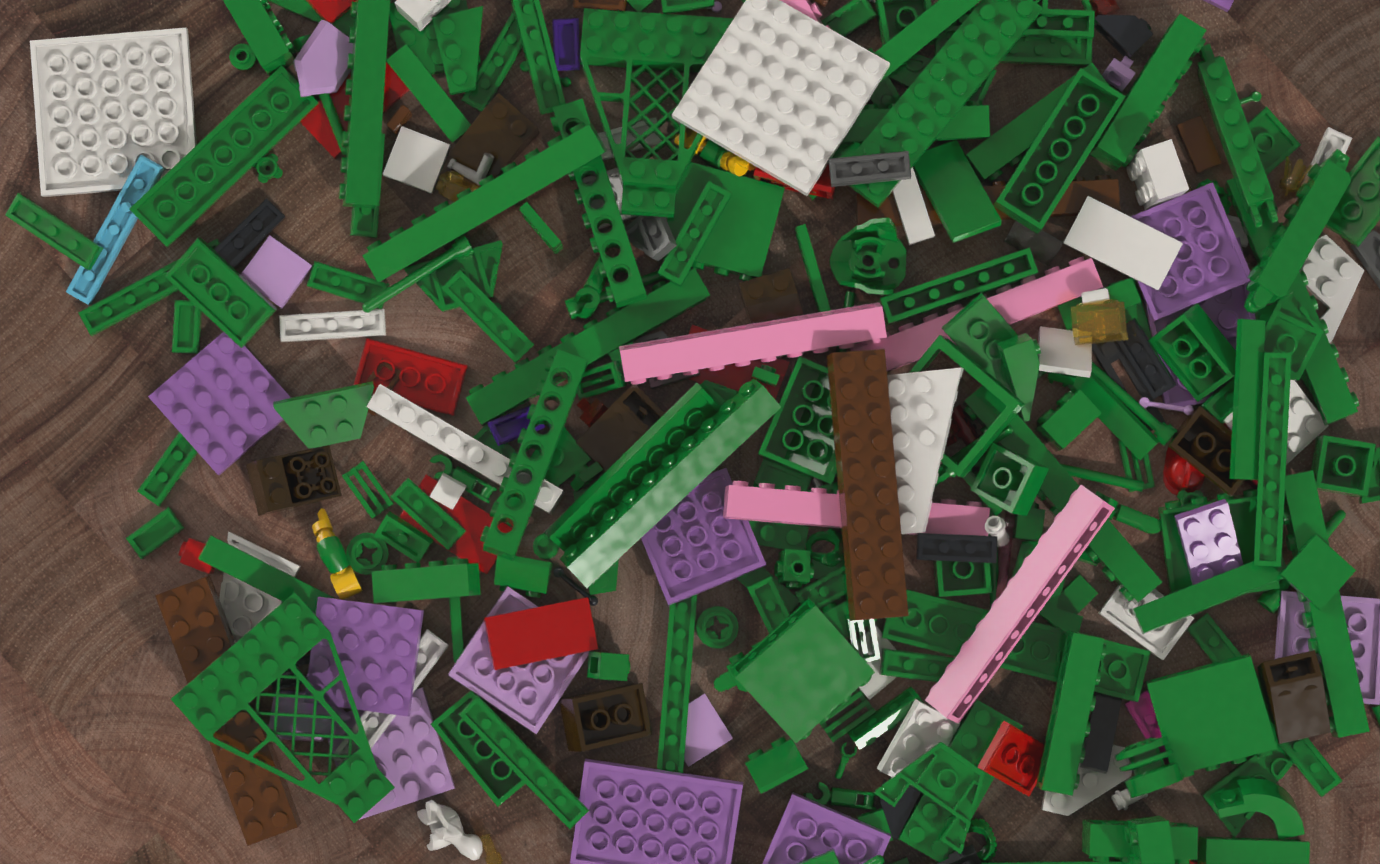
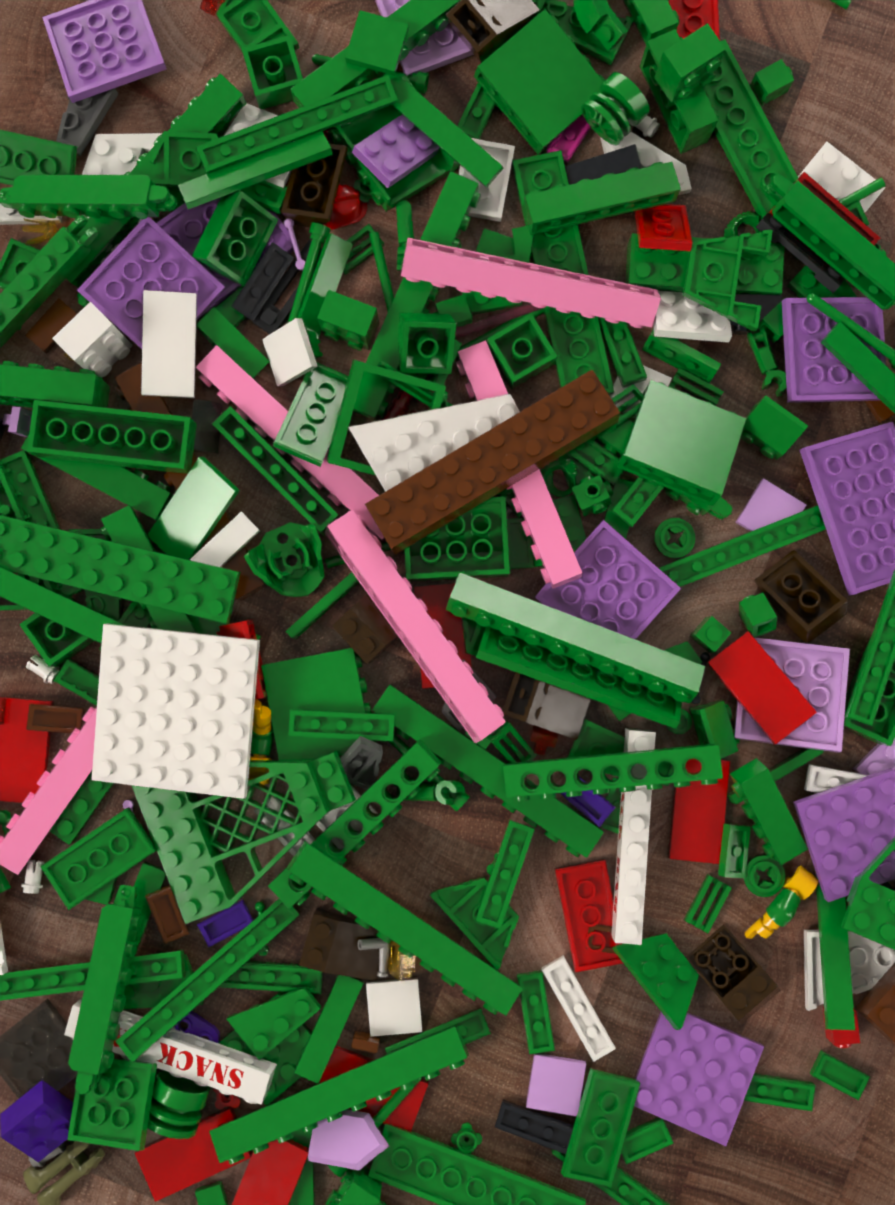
camera: 110 degrees left, 0 degrees up
(428, 514) = (704, 839): green tile -> none
(448, 491) = (676, 832): white tile -> none
(460, 248) = (456, 929): green piece -> none
(464, 477) = (657, 824): green piece -> none
(541, 228) = (402, 865): green tile -> none
(585, 475) = (601, 717): green plate -> none
(612, 613) = (710, 634): none -> green brick
(765, 375) = (435, 601): green plate -> none
(844, 760) = (732, 375): green hand -> none
(869, 168) = (208, 595): dark grey tile -> none
(956, 548) = (508, 360): black tile -> none
(996, 527) = (473, 336): white pin -> none
(1021, 367) = (322, 380): green slope -> none
(1095, 297) = (228, 346): white tile -> none
(1099, 322) = (249, 332): clear yellow brick -> none

